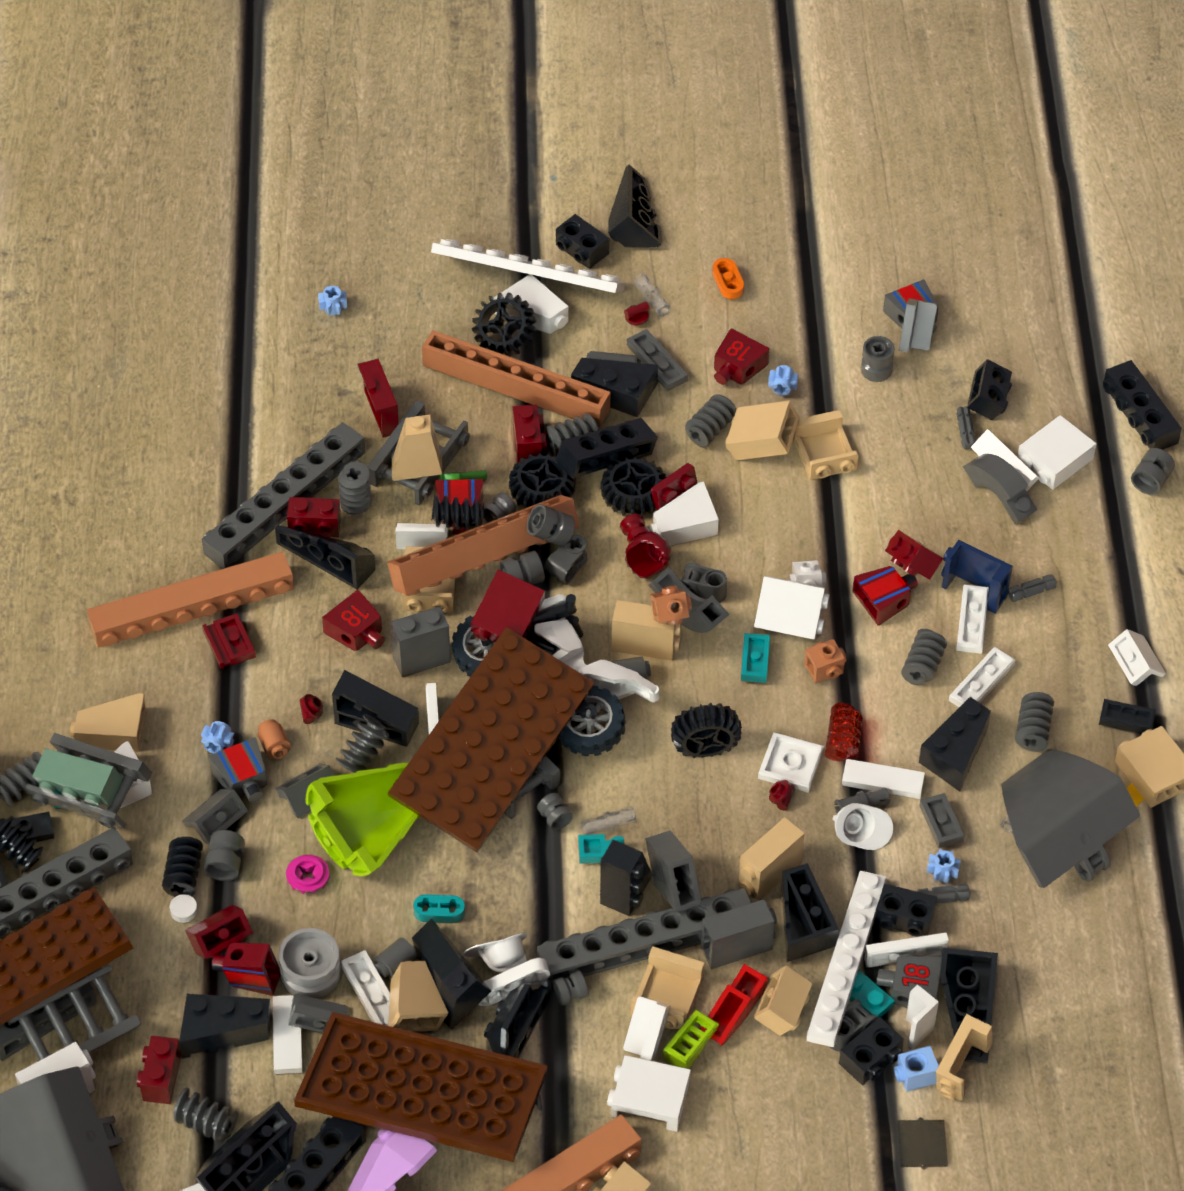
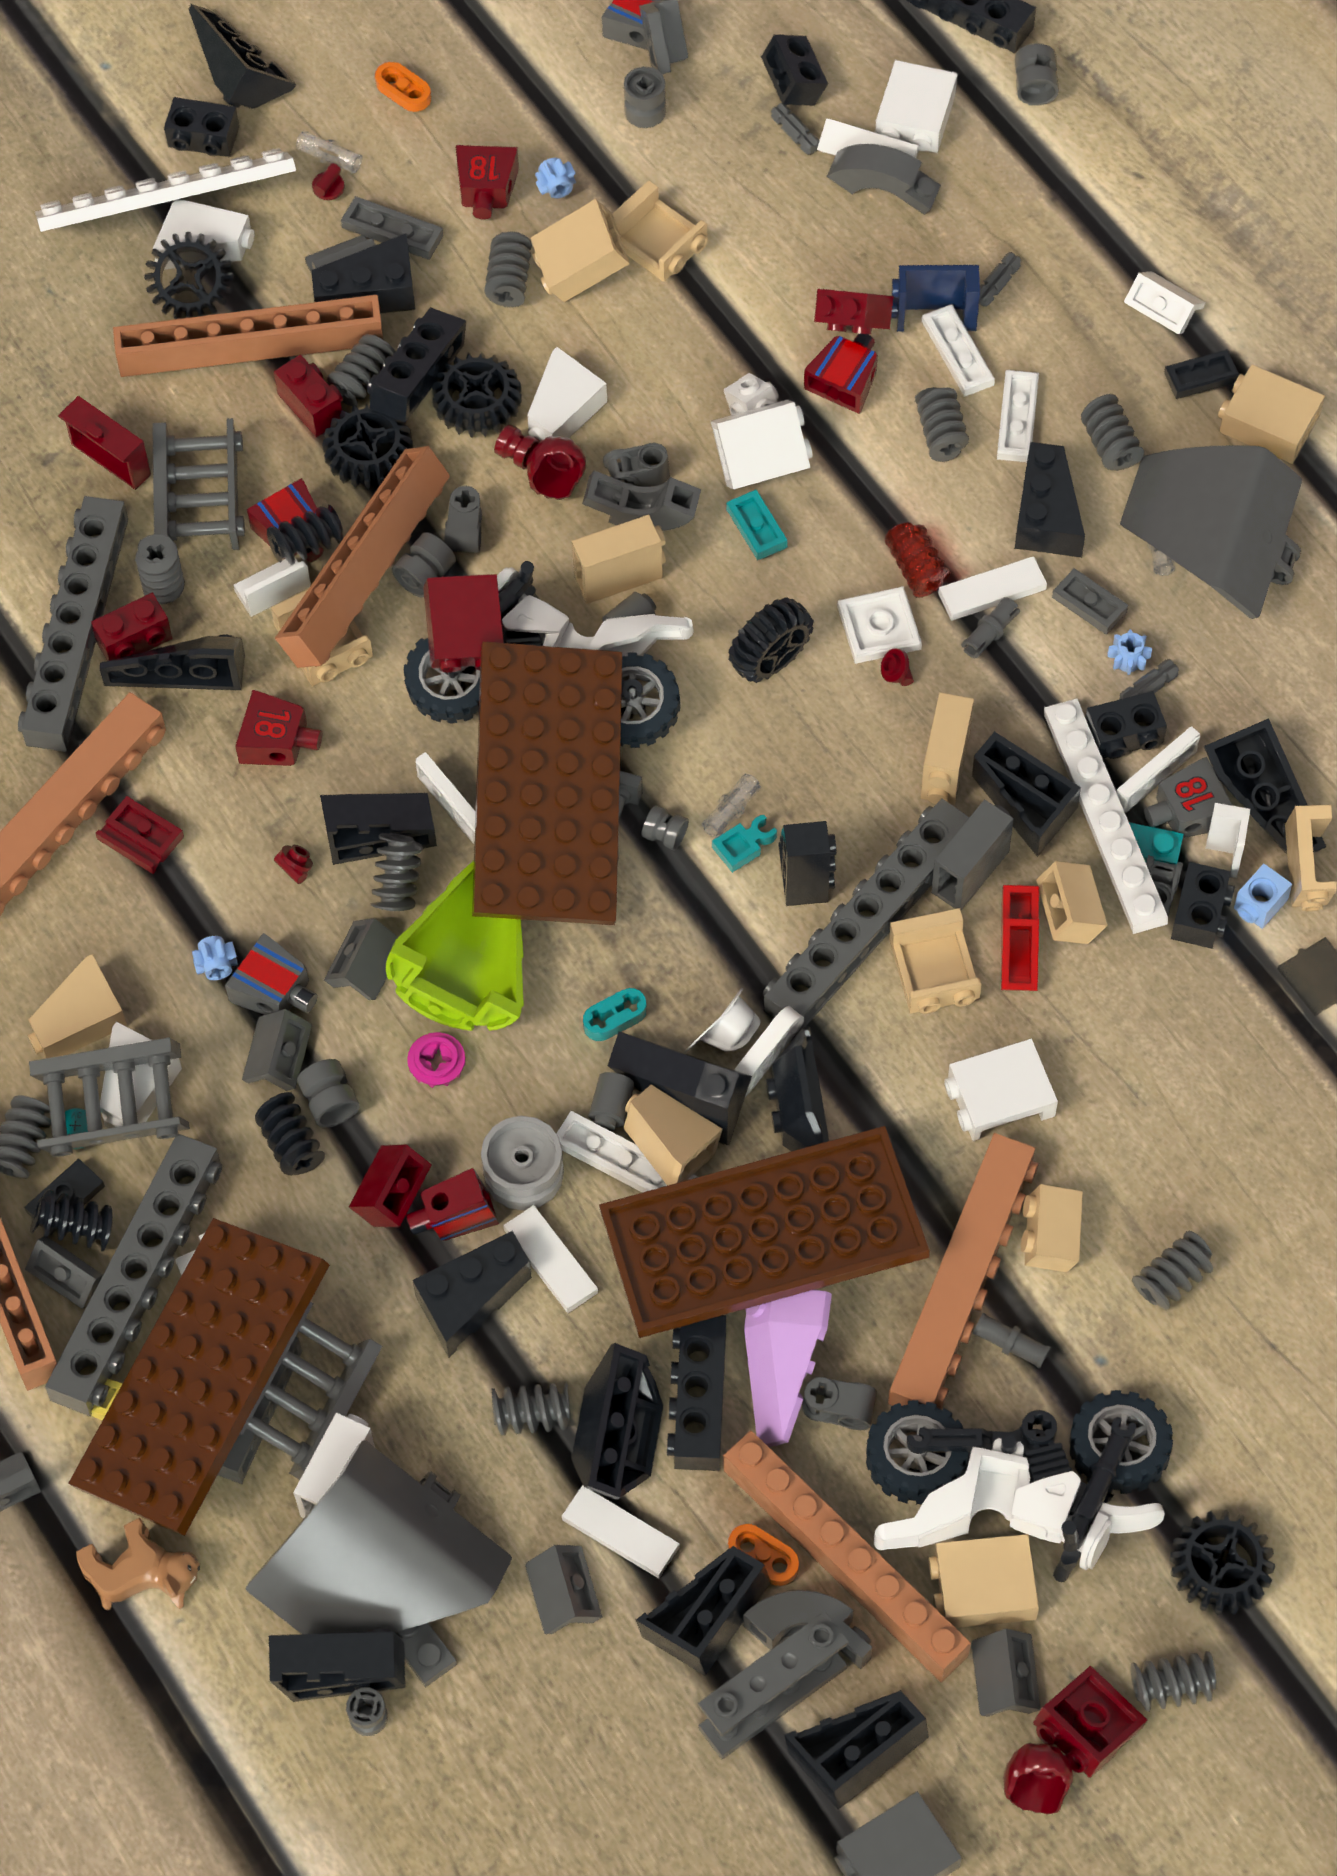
camera: 30 degrees left, 10 degrees up
(77, 777) = (100, 1100): sand green brick -> none
(160, 1069) = (441, 1386): dark red brick -> none
(183, 908) = (322, 1182): white tile -> none
(273, 739) = (281, 923): nougat brick -> none
(313, 1013) = (569, 1216): dark grey panel -> none
(417, 450) = (207, 485): tan slope -> none
(420, 641) = (375, 712): dark grey brick -> none
(464, 475) = (270, 487): bright green bar -> none
(500, 507) = (344, 499): flat silver wheel -> none
(550, 525) = (428, 491): dark grey wheel -> none
(570, 988) = (829, 1021): dark grey wheel -> none
(646, 1028) = (949, 1019): white panel -> none
(662, 602) = (645, 514): nougat brick -> none
(673, 871) = (860, 820): dark grey brick -> none
(674, 485) = (528, 372): dark red plate -> none
(681, 1056) = (1002, 1029): lime slope -> none
(825, 661) = (839, 486): nougat brick -> none
(863, 826) = (1013, 655): white piece -> none

